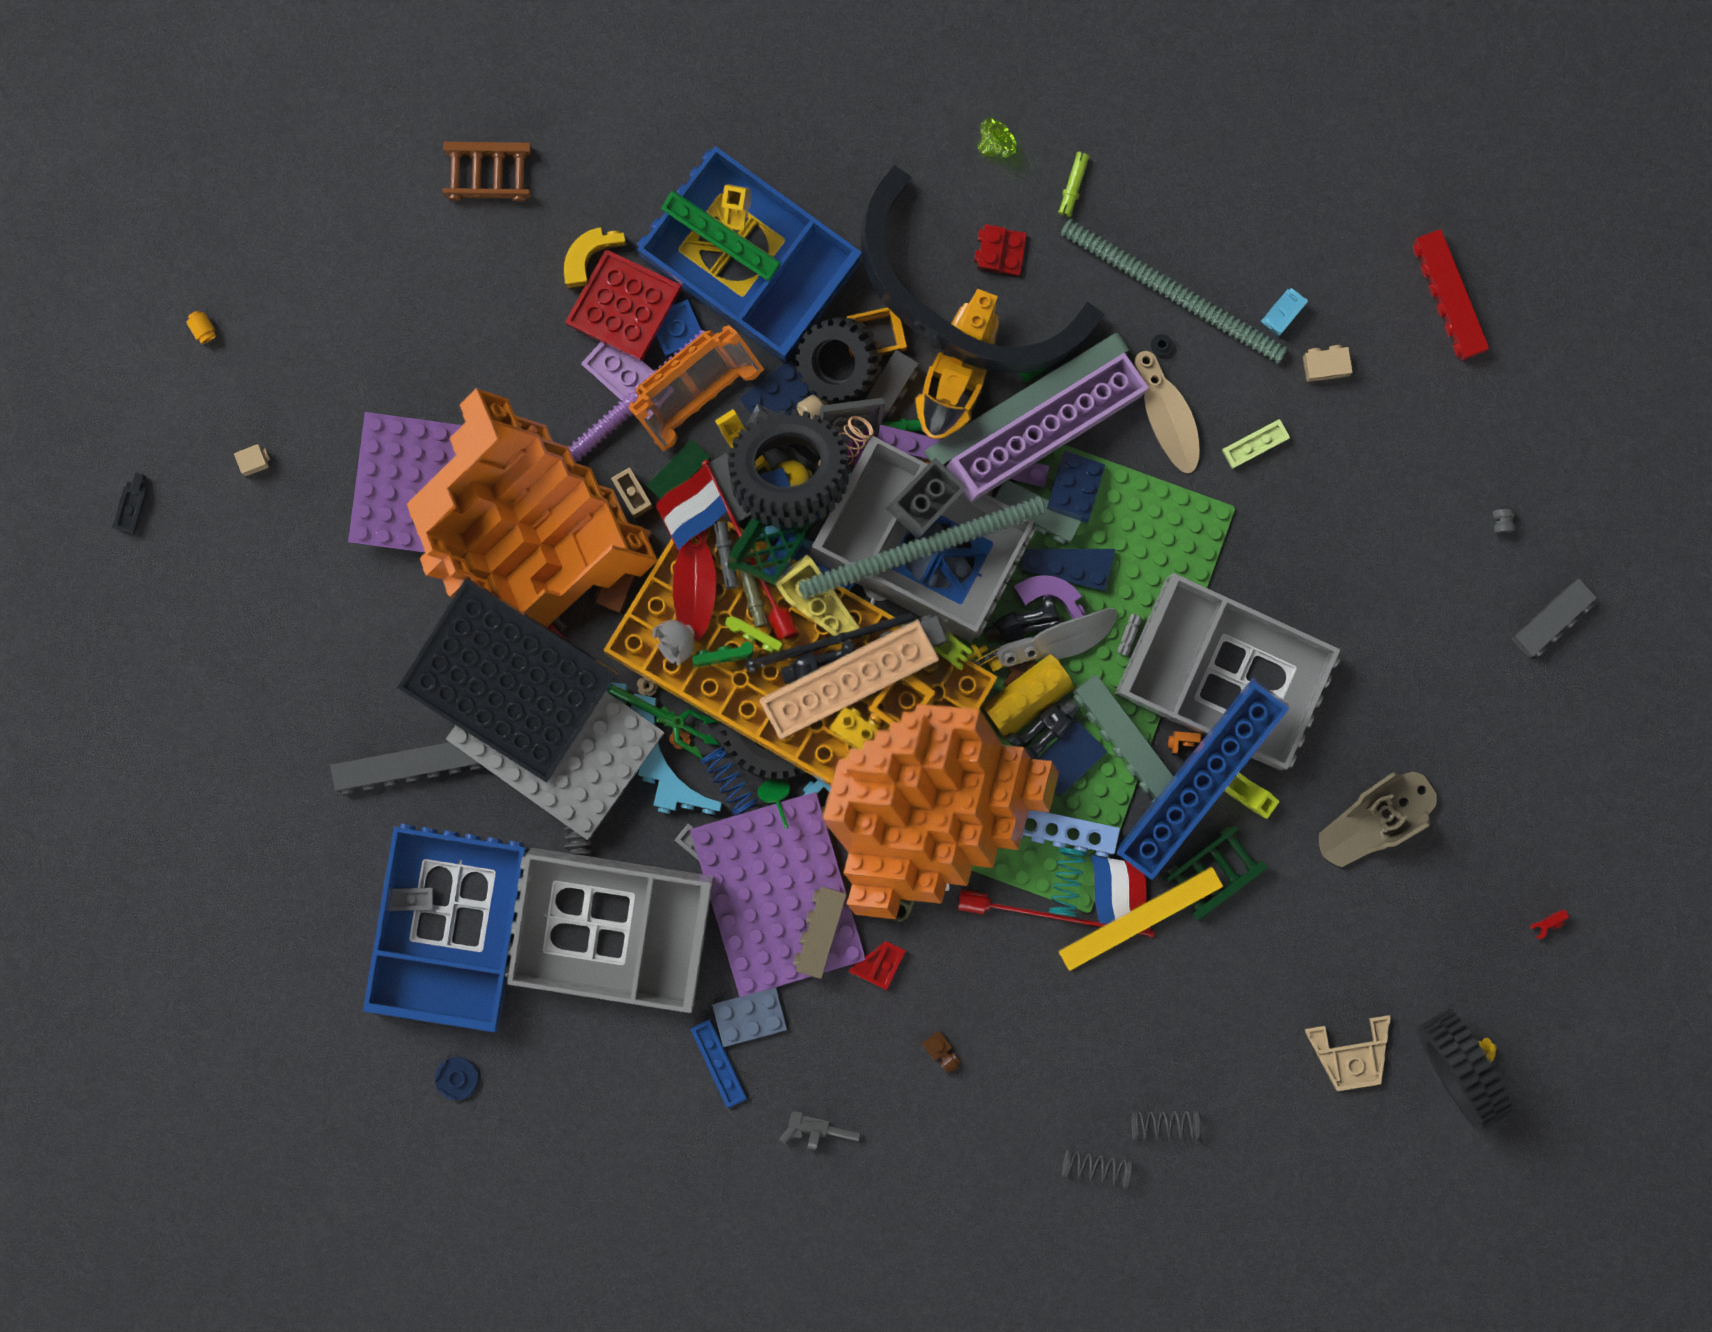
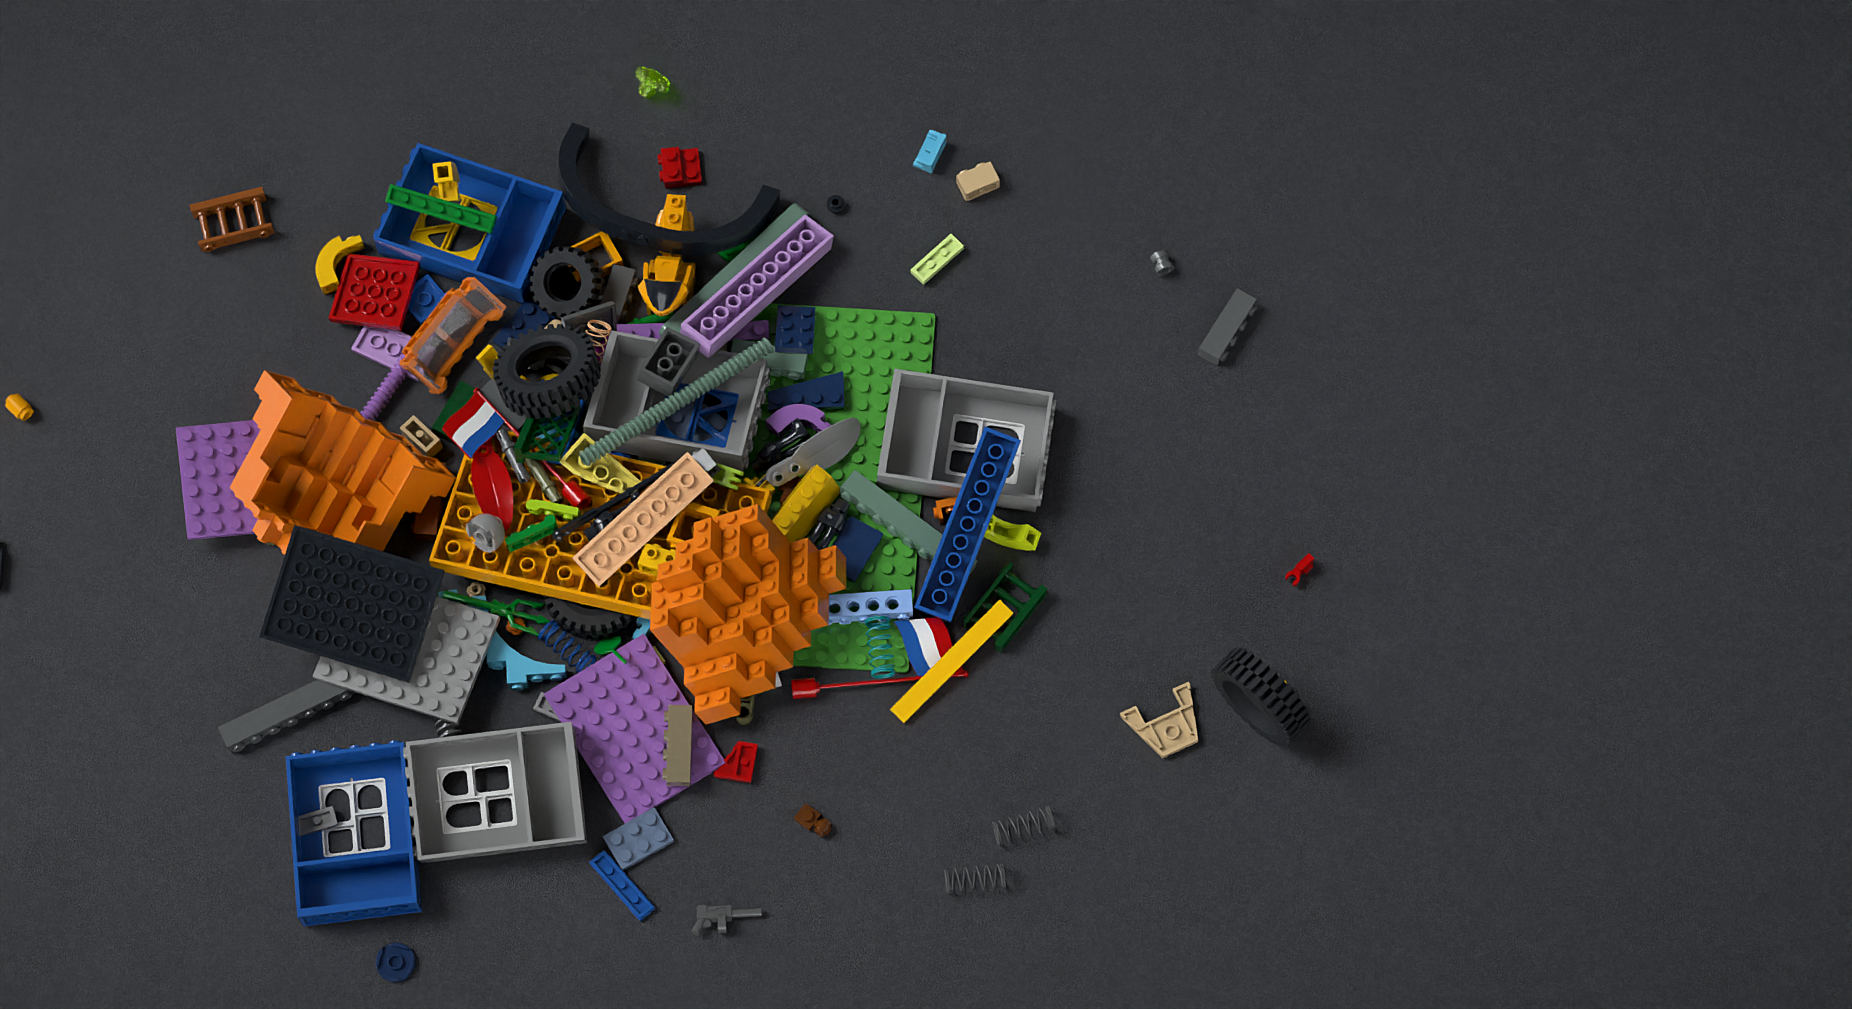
camera: 10 degrees left, 15 degrees down
(252, 459) = (89, 500): tan brick -> none
(1071, 192) = (726, 107): lime pin -> none
(1129, 634) = (875, 434): light grey axle -> none
(1169, 415) = (859, 256): tan plant -> none
(1174, 291) = (833, 159): sand green piece -> none
(1378, 818) = (1126, 523): dark tan piece -> none
(1450, 295) = (1063, 101): red brick -> none

